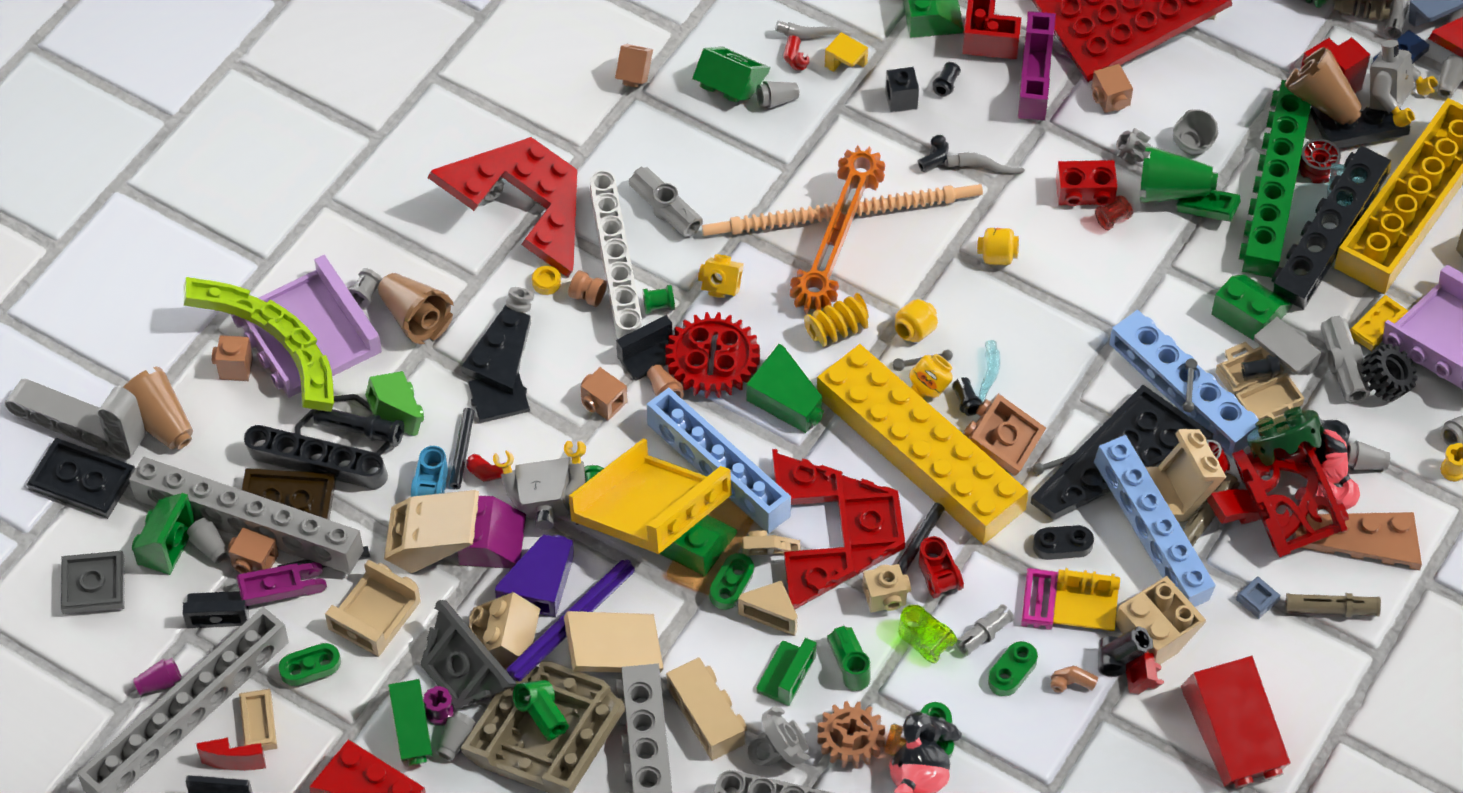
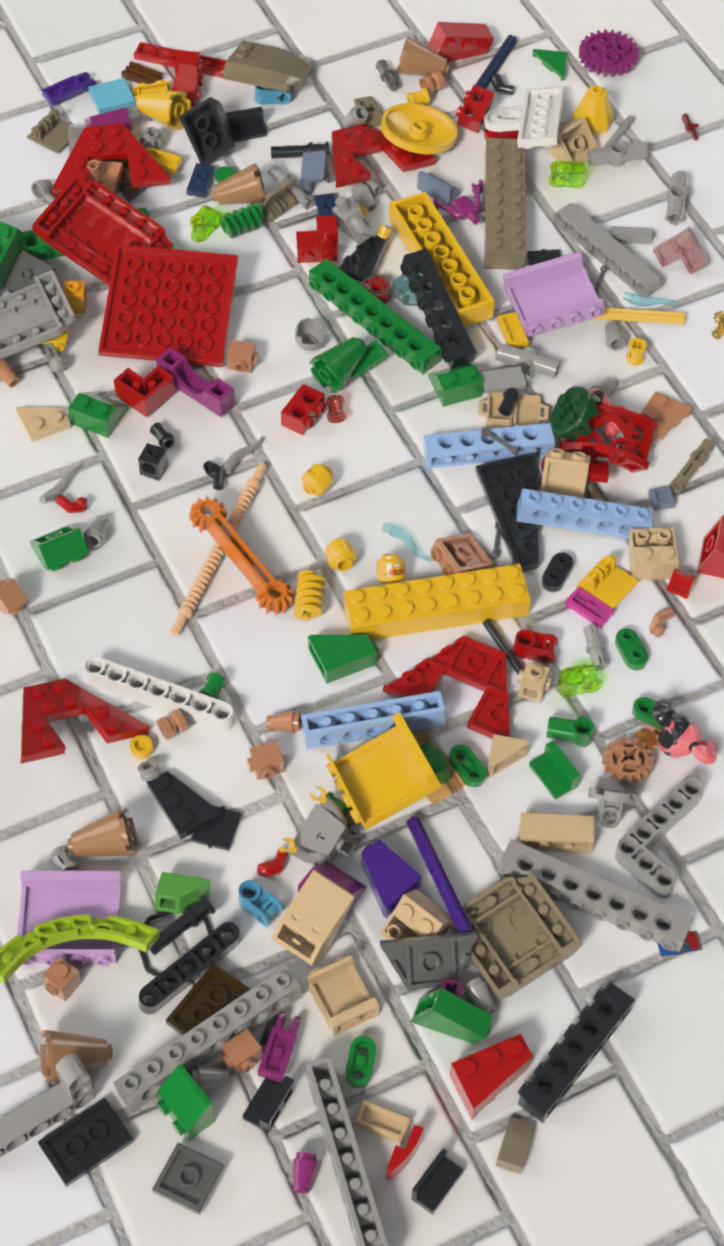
camera: 60 degrees left, 0 degrees up
(461, 448) = (242, 870): black piece -> none
(538, 700) = (505, 926): green piece -> none
(611, 641) = (473, 858): tan tile -> none
(645, 347) = (248, 716): black panel -> none
(665, 201) = (124, 641): light grey piece -> none
(685, 351) = (281, 680): red gear -> none
(730, 272) = (225, 640): yellow brick -> none
(762, 544) = (457, 731): tan wing -> none
(847, 51) = (98, 473): yellow panel -> none
(899, 364) = (362, 583): dark grey hinge -> none
(968, 400) = (417, 561): black pin -> none
(1118, 651) = (661, 586): black piece -> none
(1133, 146) = (299, 374): light grey gear -> none
(1325, 87) = (336, 250): medium nougat cone -> none
(1389, 372) = (556, 344): black tyre -> none

